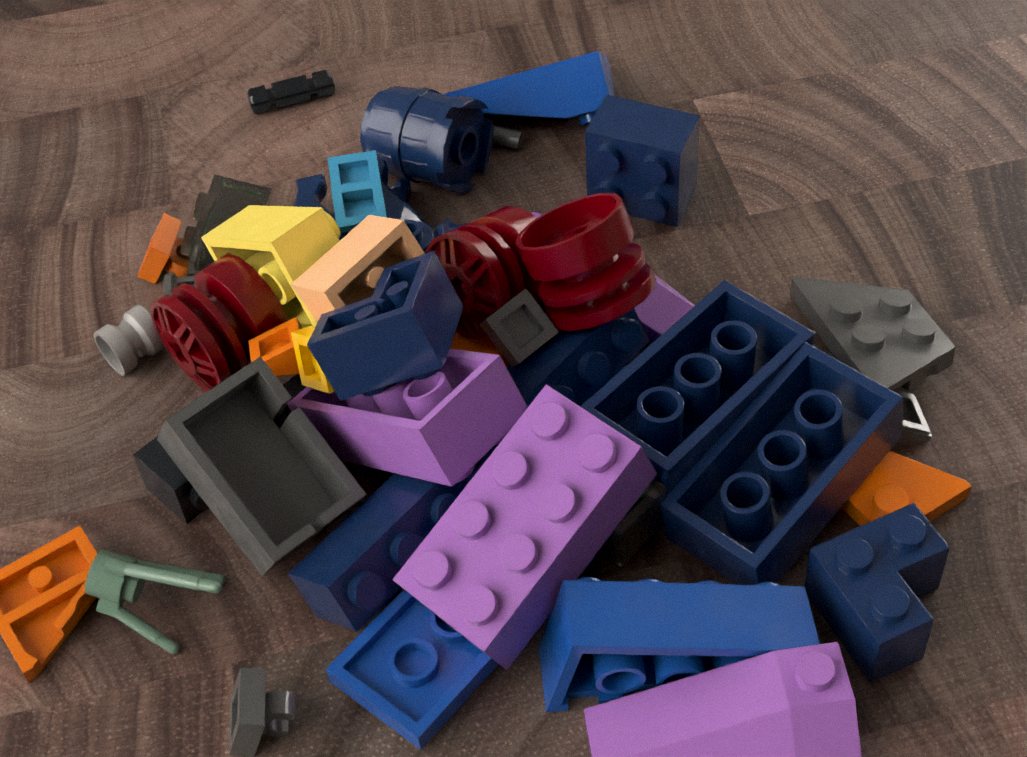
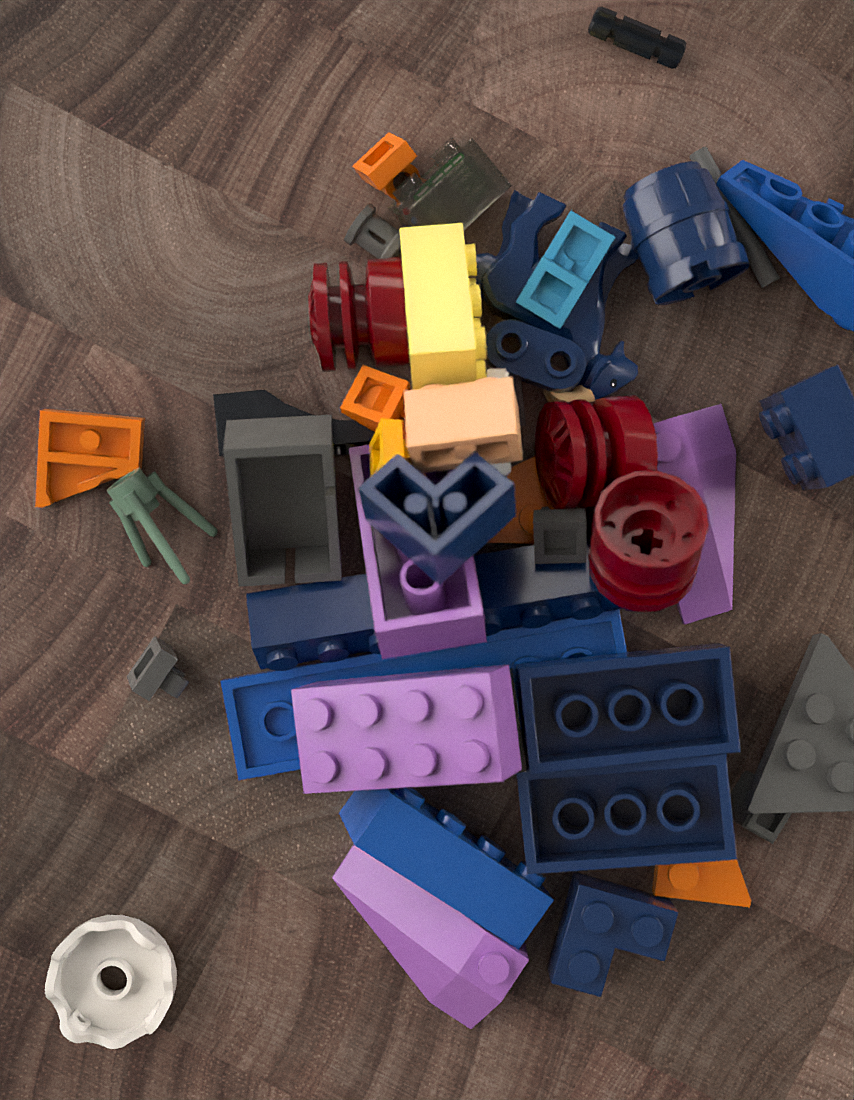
camera: 35 degrees right, 40 degrees up
(129, 340) = (293, 249): light grey wheel -> none

